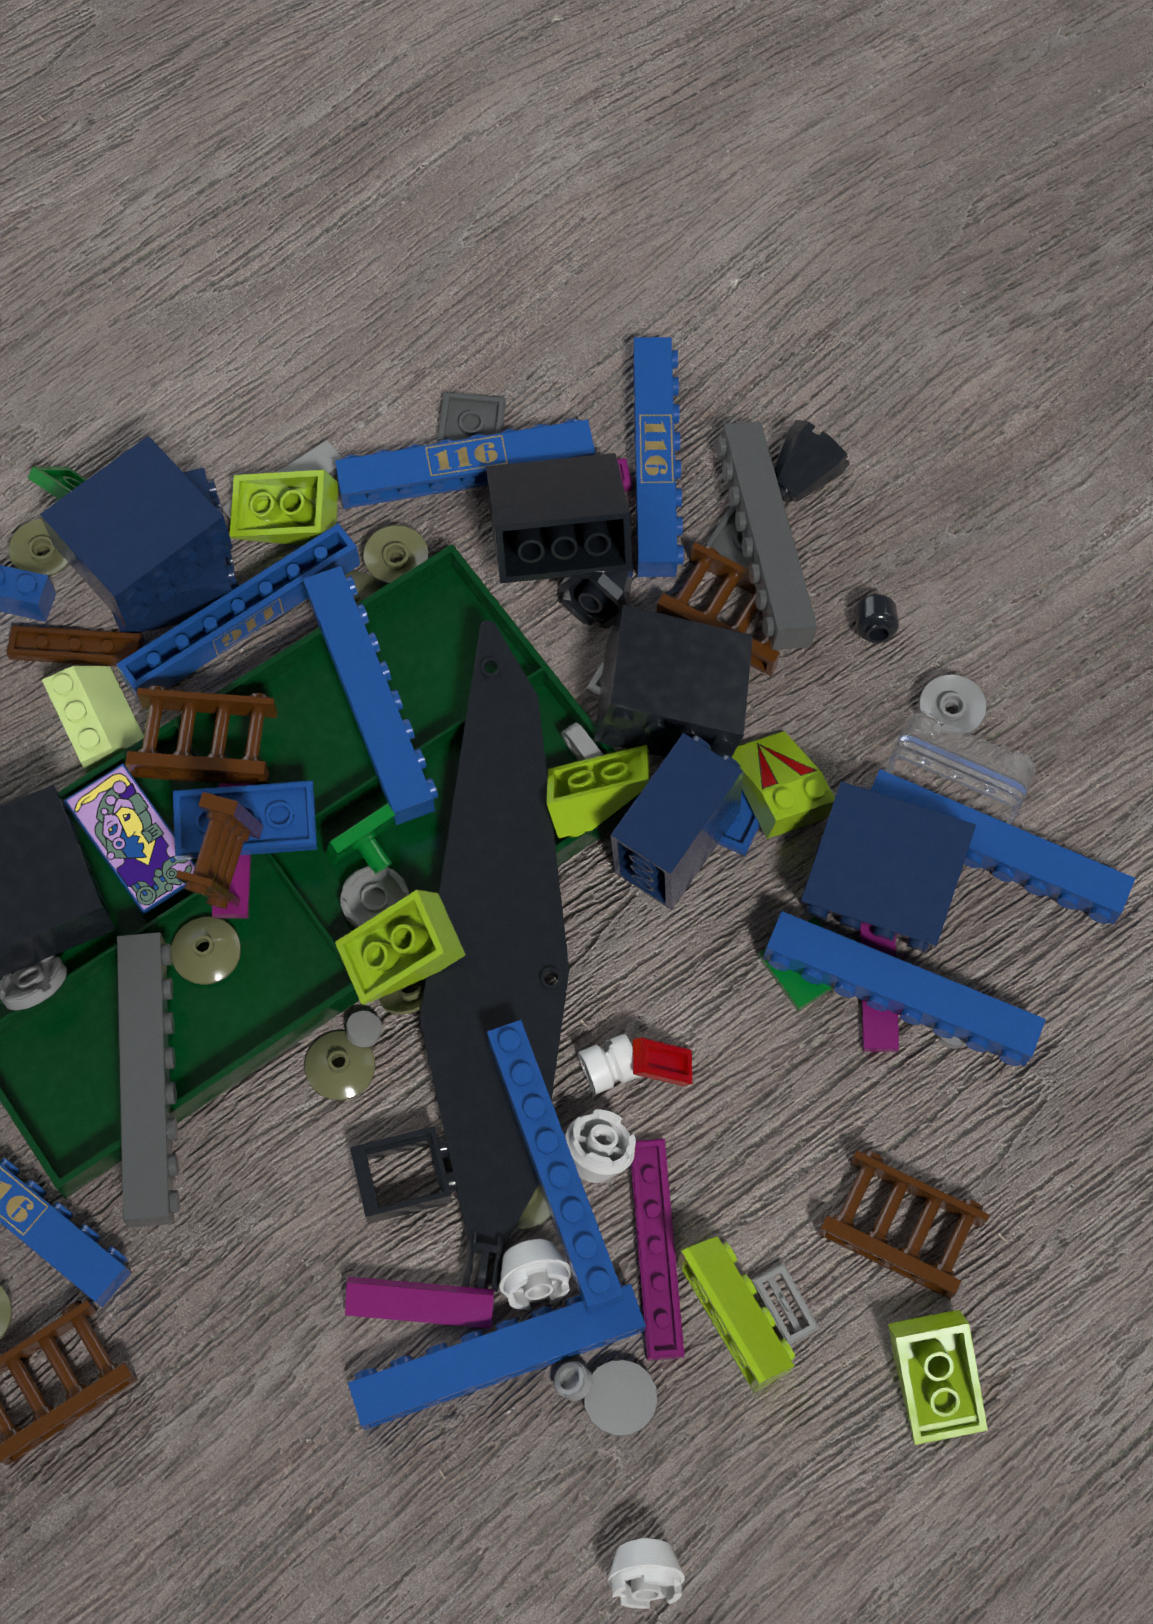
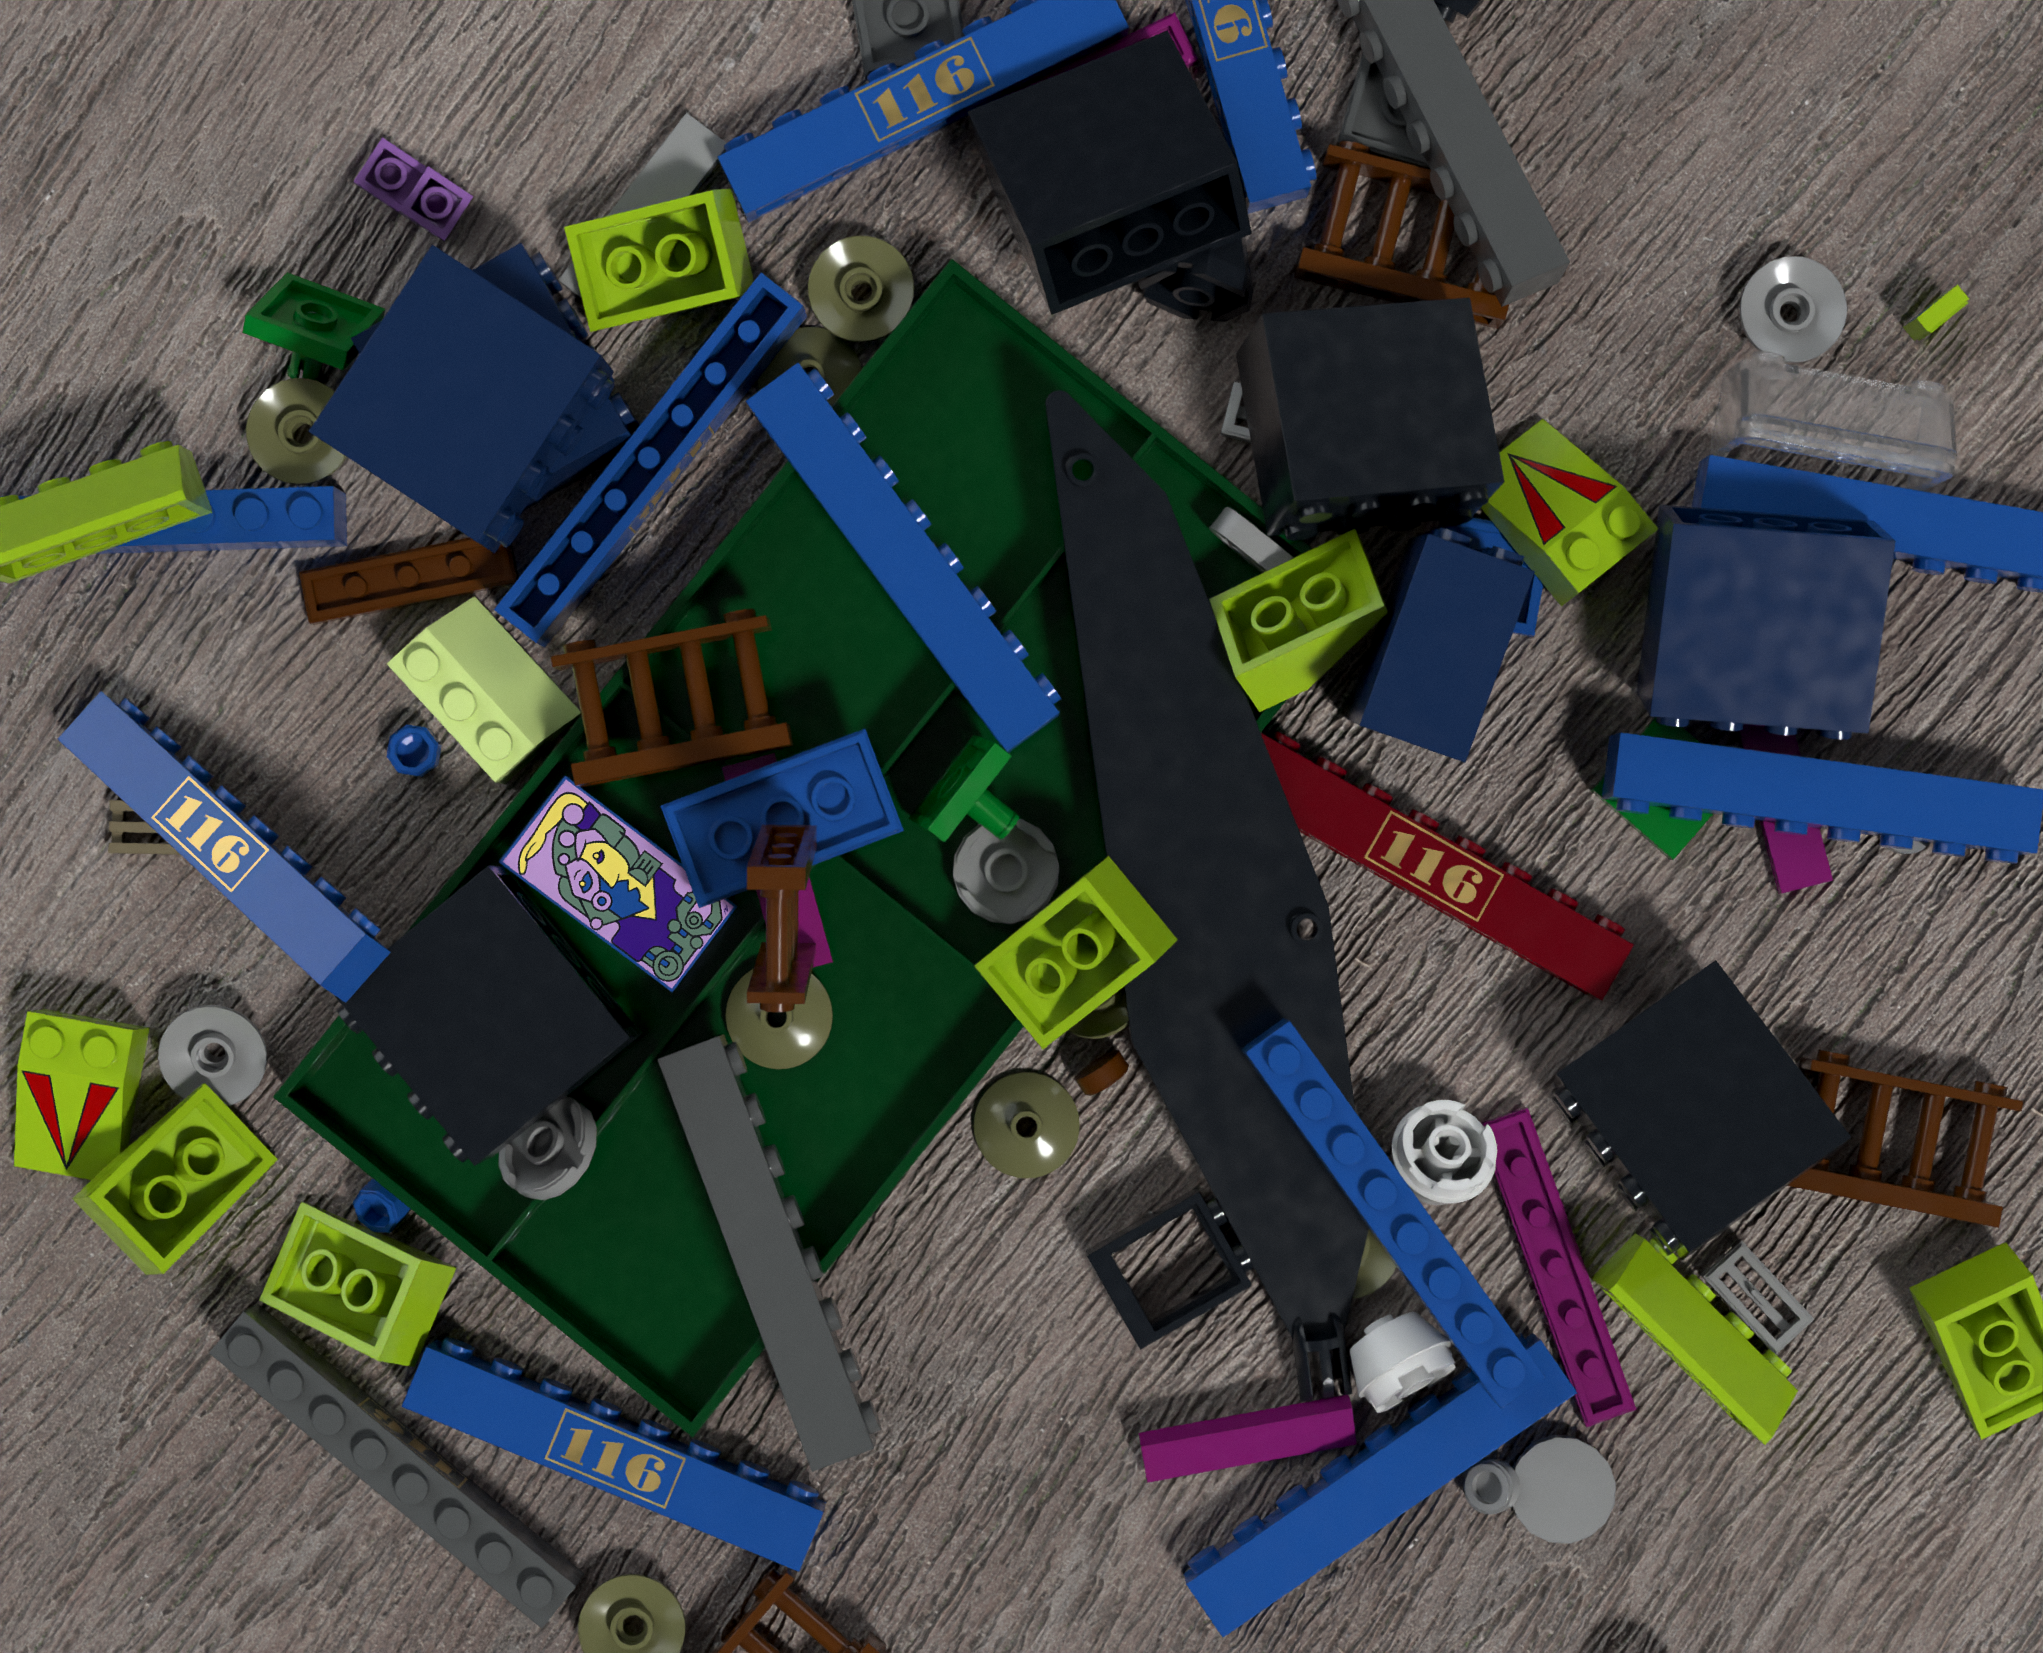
camera: 15 degrees left, 20 degrees up
(41, 741) = (414, 750): none -> blue tile
(148, 425) = (413, 189): none -> medium lavender slope
(363, 1029) = (1046, 1068): light grey tile -> none
(397, 1041) = (1102, 1073): none -> reddish brown tile
(608, 1064) = (1422, 1023): white wheel -> none
(653, 979) = (1448, 873): none -> dark red brick
(662, 1061) = (1498, 1002): red tile -> none
(771, 1159) = (1697, 1111): none -> black brick
(876, 618) = (1642, 192): black head -> none
(1040, 730) = (1936, 313): none -> lime tile

